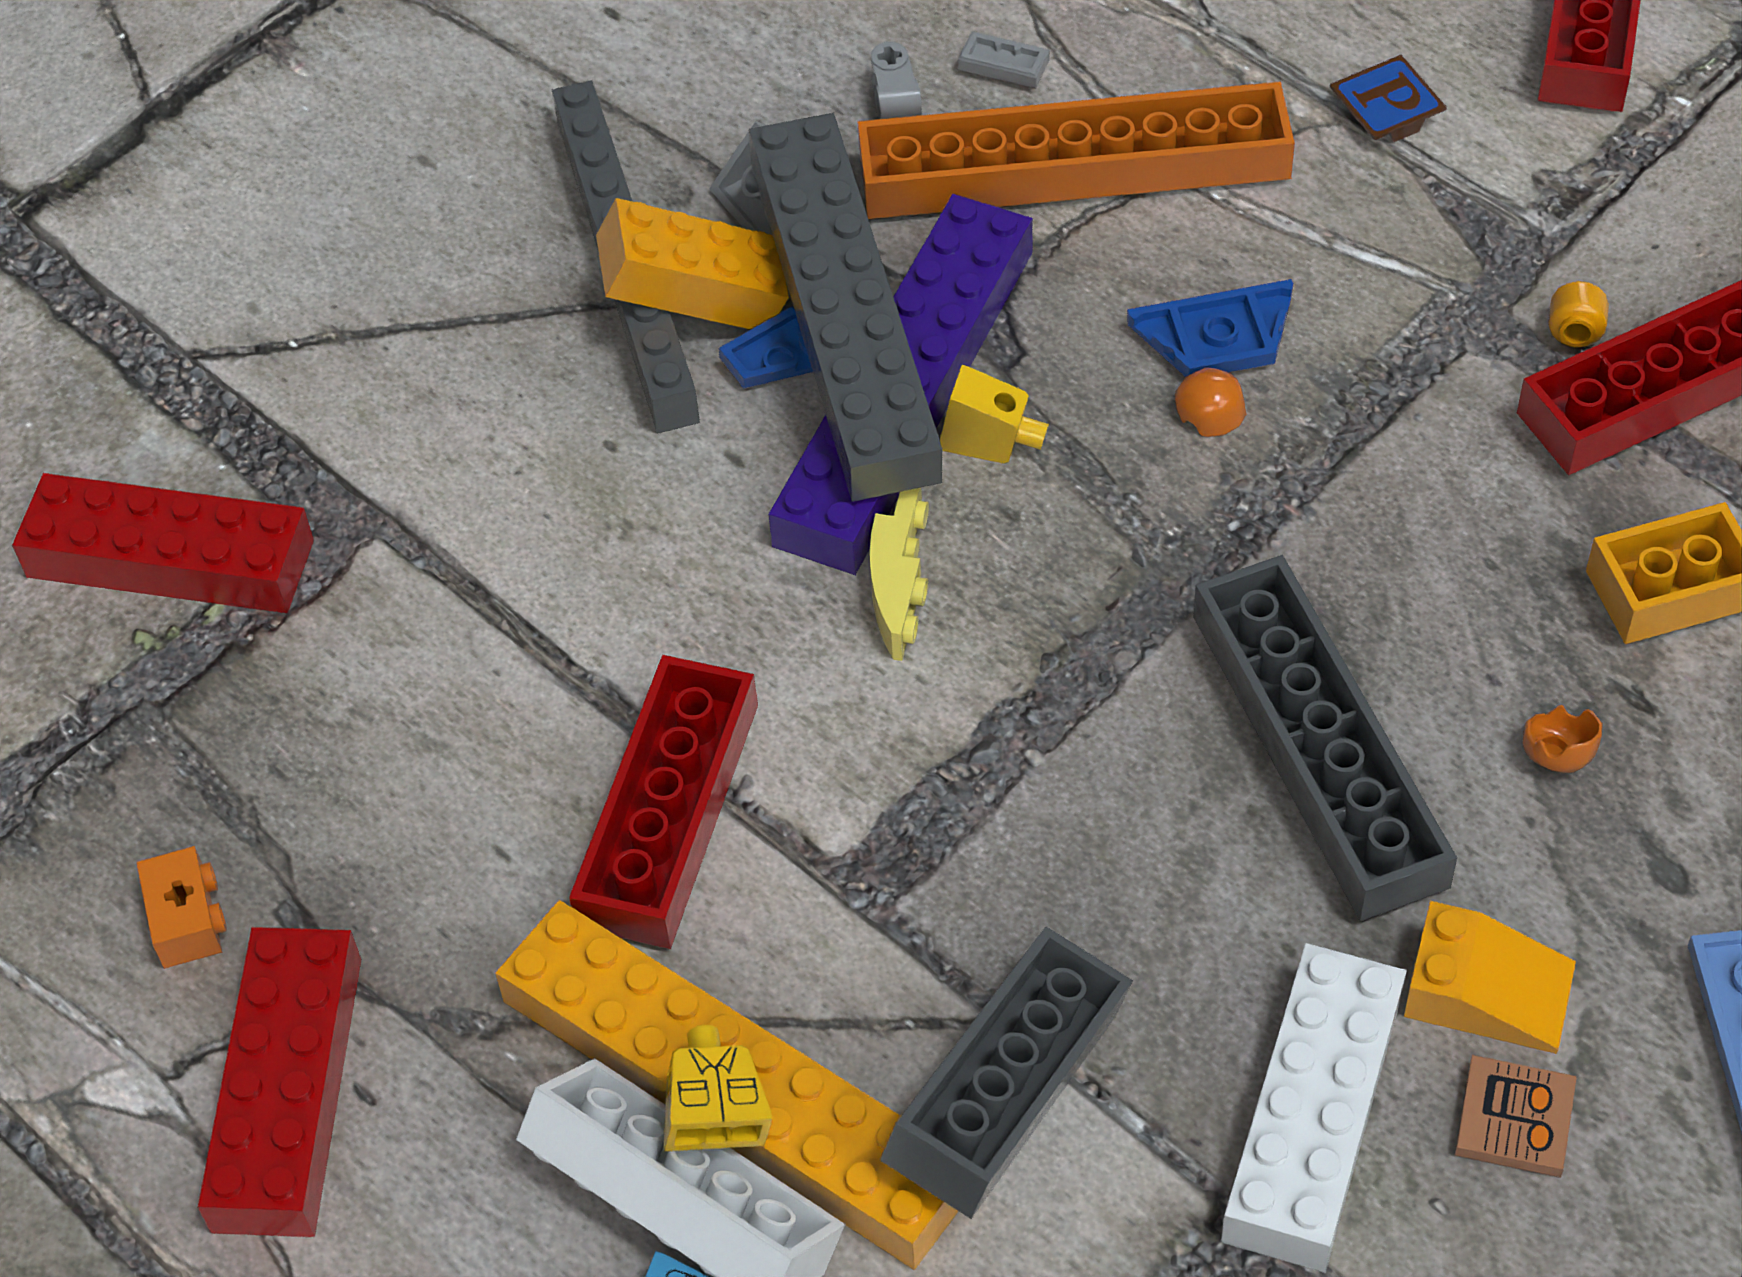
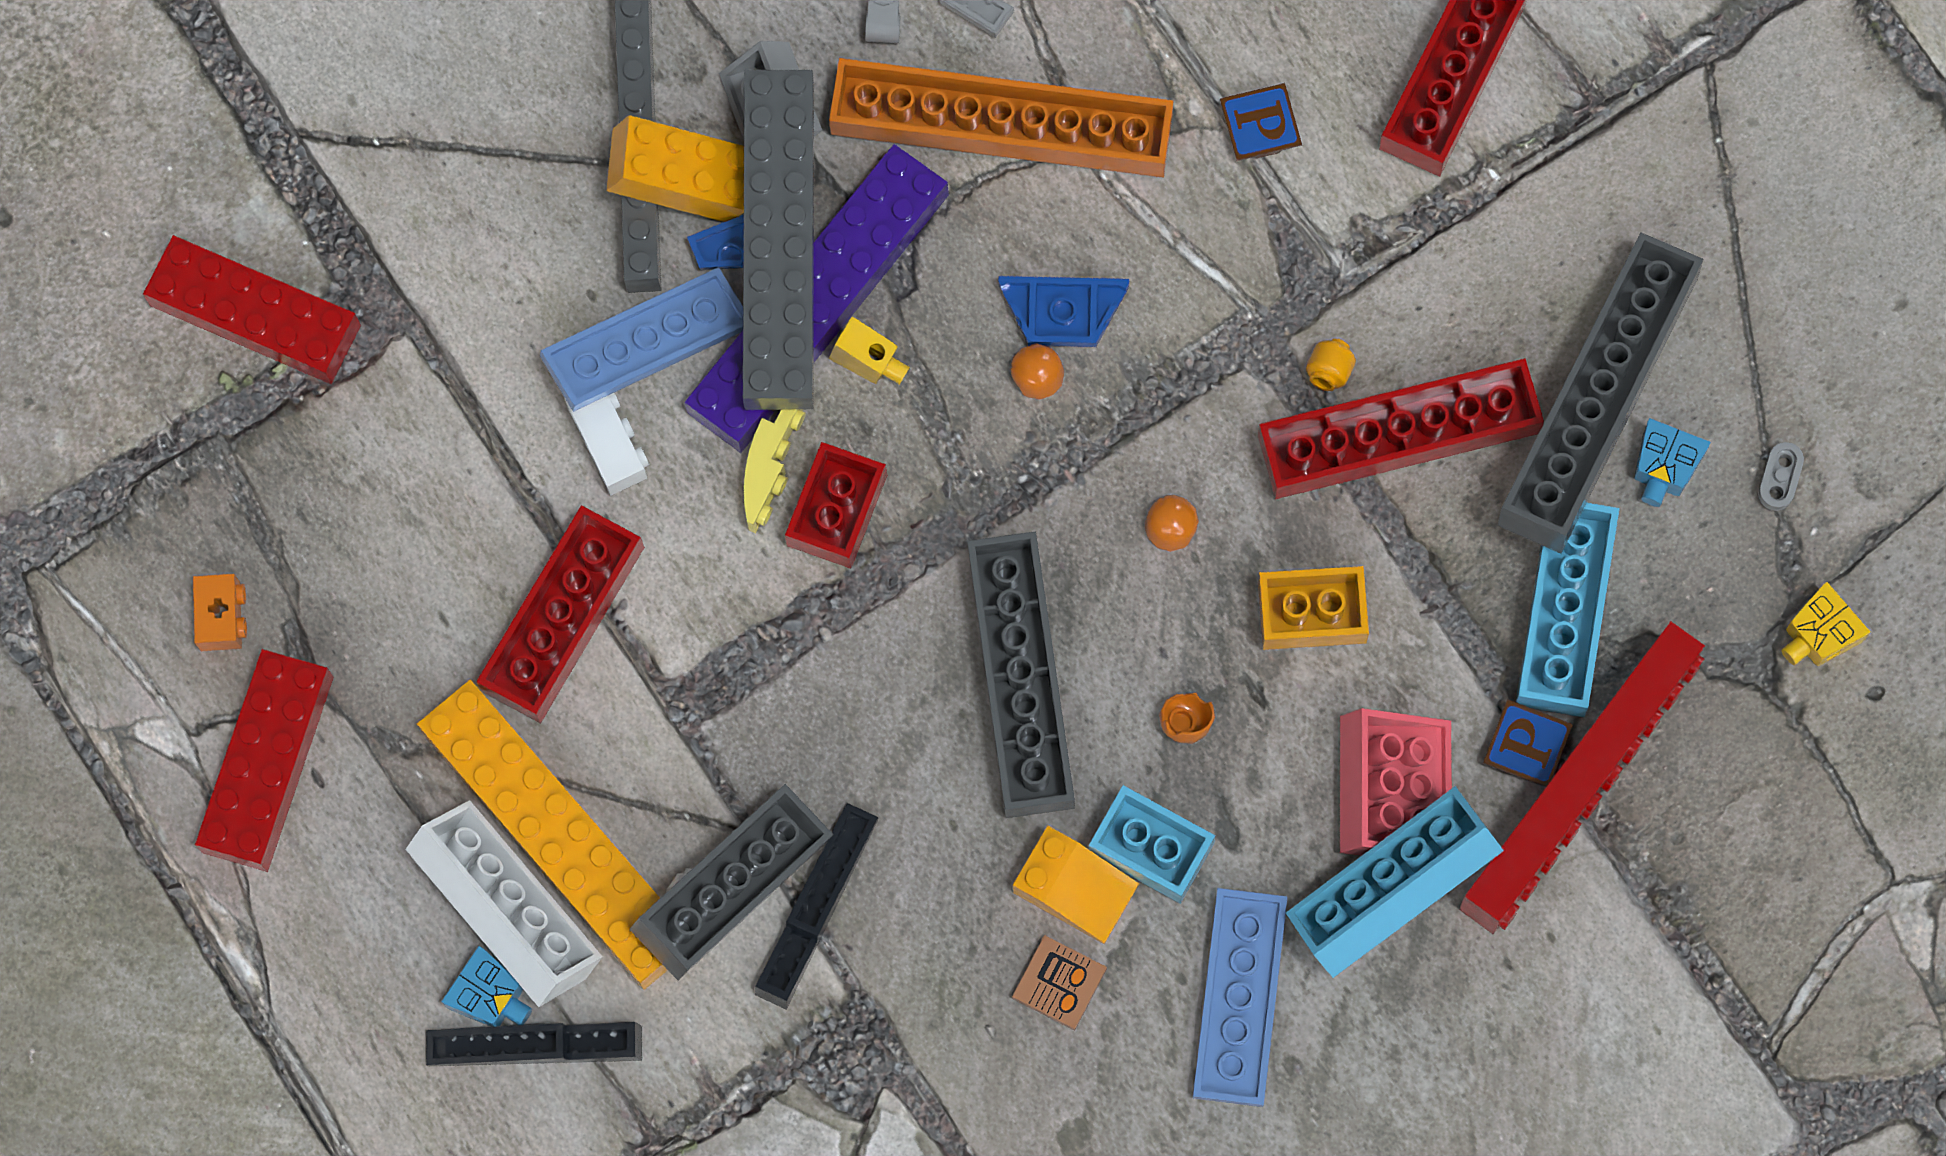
camera: 15 degrees right, 20 degrees up
(673, 587) = (610, 444): none -> white brick
(693, 461) = (644, 339): none -> medium blue plate
(713, 1096) = (534, 857): yellow torso -> none
(1003, 593) = (836, 505): none -> red brick
(1130, 1101) = (815, 906): none -> black slope
(1313, 1108) = (929, 946): white brick -> none
(1446, 527) = (1171, 523): none -> orange hair
(1583, 897) = (1152, 844): none -> medium azure brick

